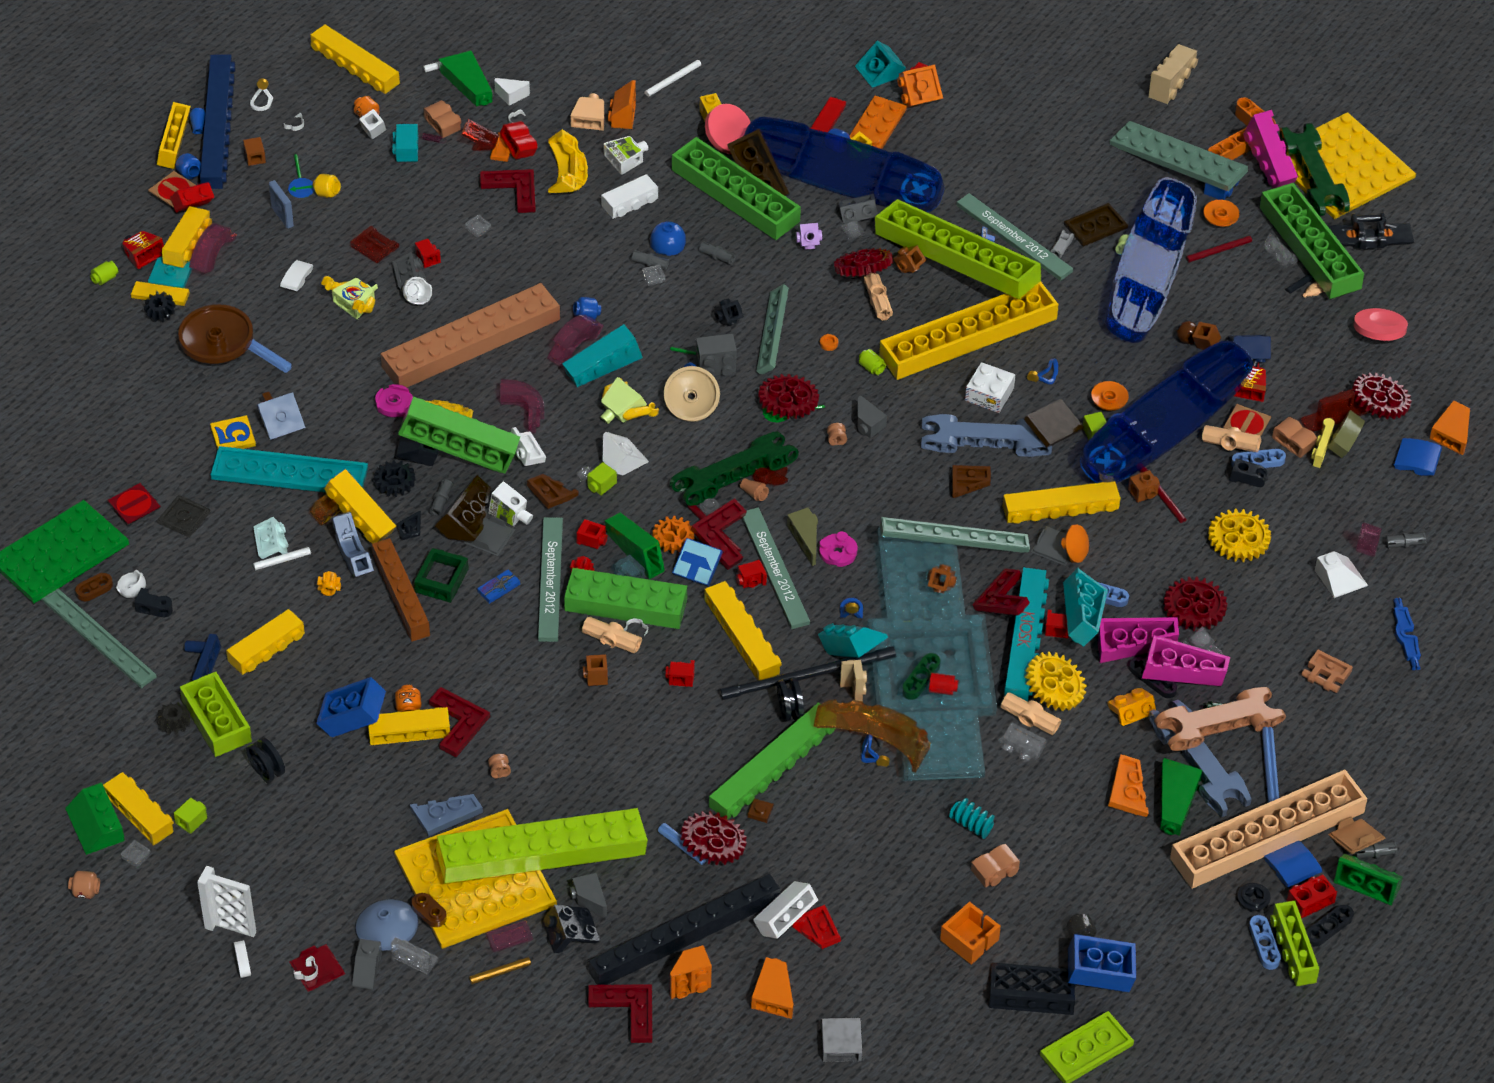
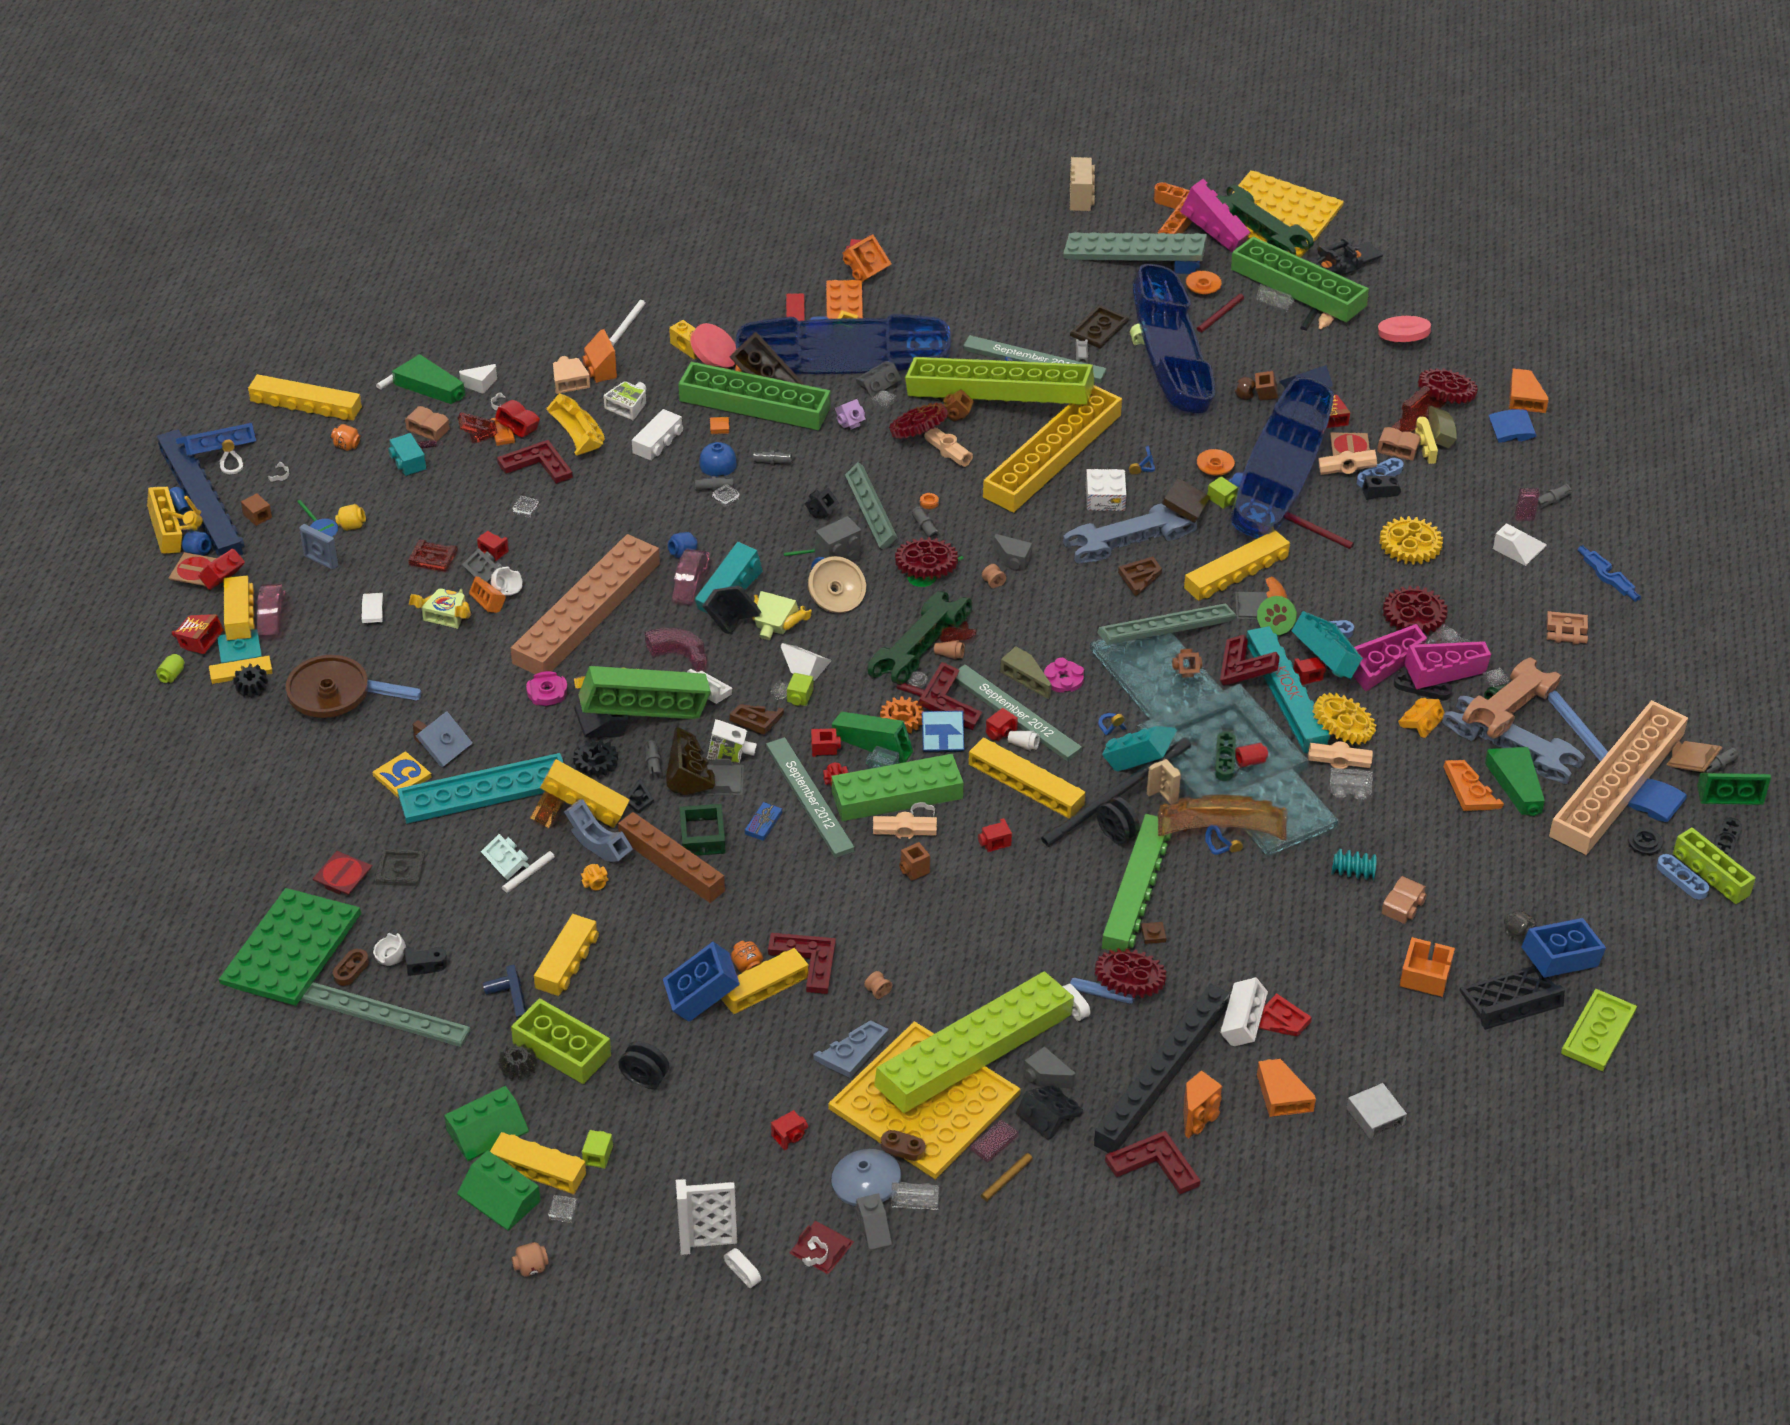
camera: 25 degrees left, 5 degrees down
(116, 755) = (480, 1122): none -> green slope
(193, 143) = (191, 518): none -> yellow plant
(251, 74) = (213, 439): none -> blue fence
(349, 859) = (788, 1129): none -> red brick
(372, 124) = (363, 448): white brick -> none
(395, 298) = (488, 597): none -> orange slope
(582, 382) = (729, 606): none -> black bracket
(652, 846) = (1080, 1006): none -> white beam
(691, 205) = (719, 425): none -> orange tile
(764, 595) = (1024, 739): none -> white cone
(810, 362) = (925, 523): none -> dark grey pin
(872, 362) = (982, 504): lime brick -> none
(880, 65) = (814, 254): teal slope -> none
(1061, 561) = (1278, 614): none -> bright green tile
(1143, 486) = (1301, 523): dark orange brick -> none
(1226, 694) = (1495, 677): none -> clear plate
(1312, 899) = (1696, 815): red brick -> none

